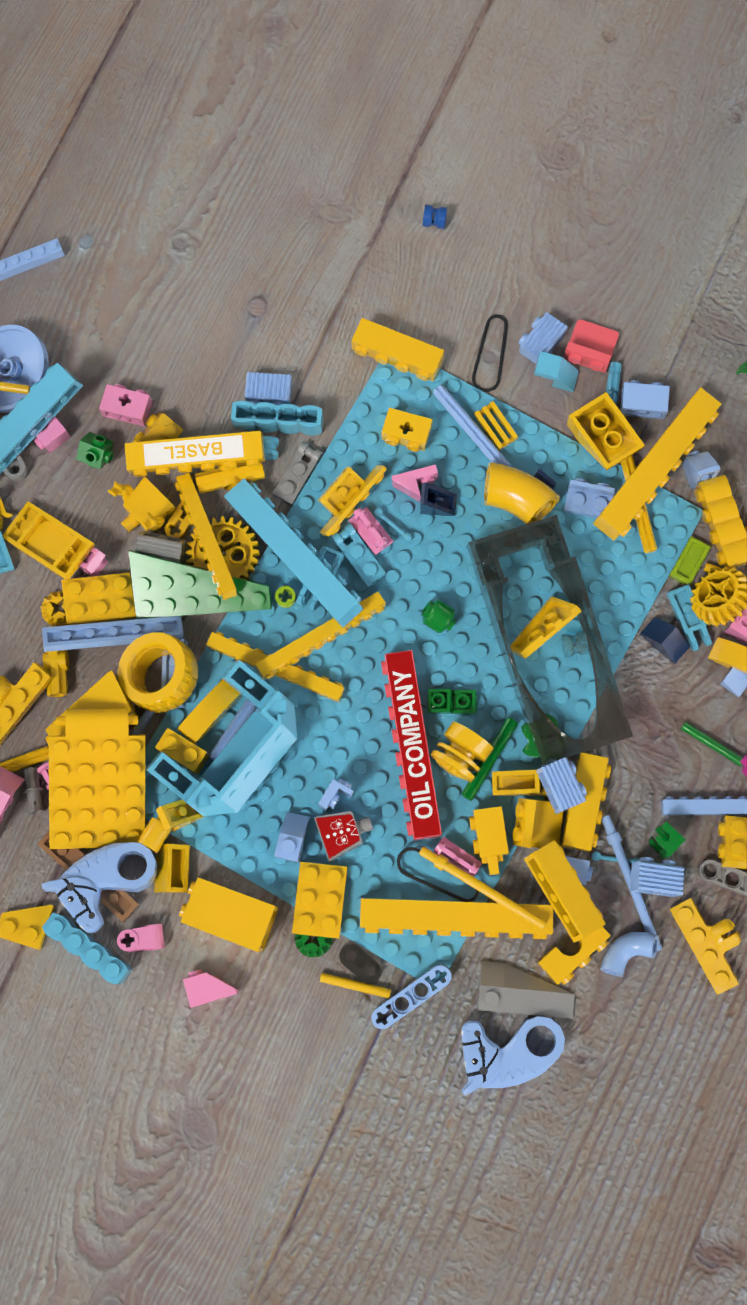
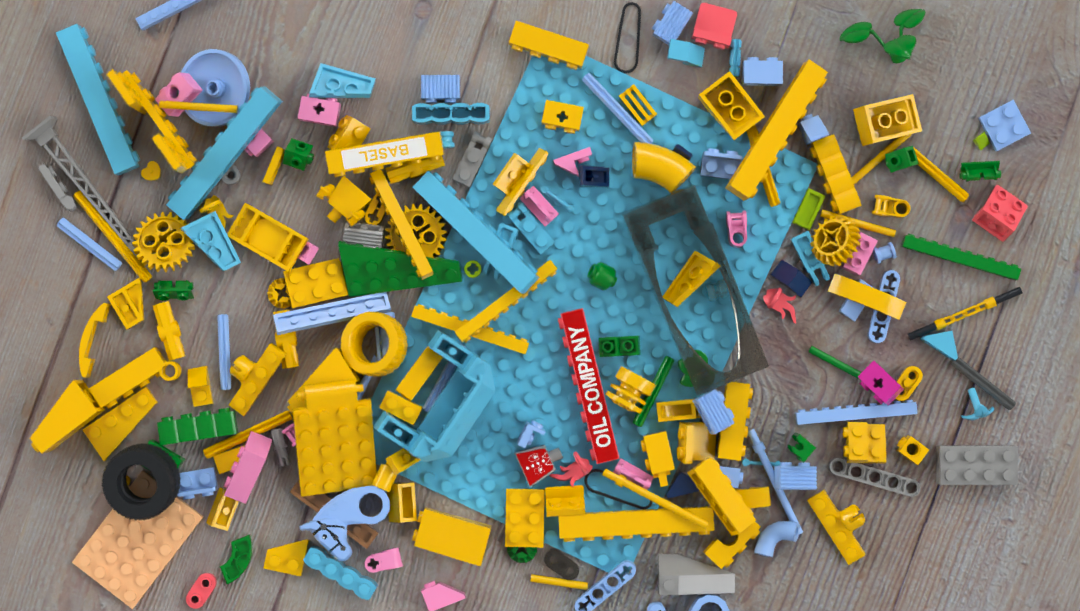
camera: 10 degrees left, 10 degrees up
(65, 463) = (274, 166): none -> yellow tile
(154, 376) = (340, 83): none -> medium azure wing
(292, 837) = (497, 469): light blue slope -> none
(370, 881) = (565, 500): none -> yellow bracket
(386, 847) = (575, 470): none -> coral piece
(516, 876) = (681, 485): none -> dark blue slope
(603, 569) = (736, 227): none -> bright pink piece
(608, 898) = (755, 496): none -> yellow slope
(648, 664) = (778, 301): none -> coral piece

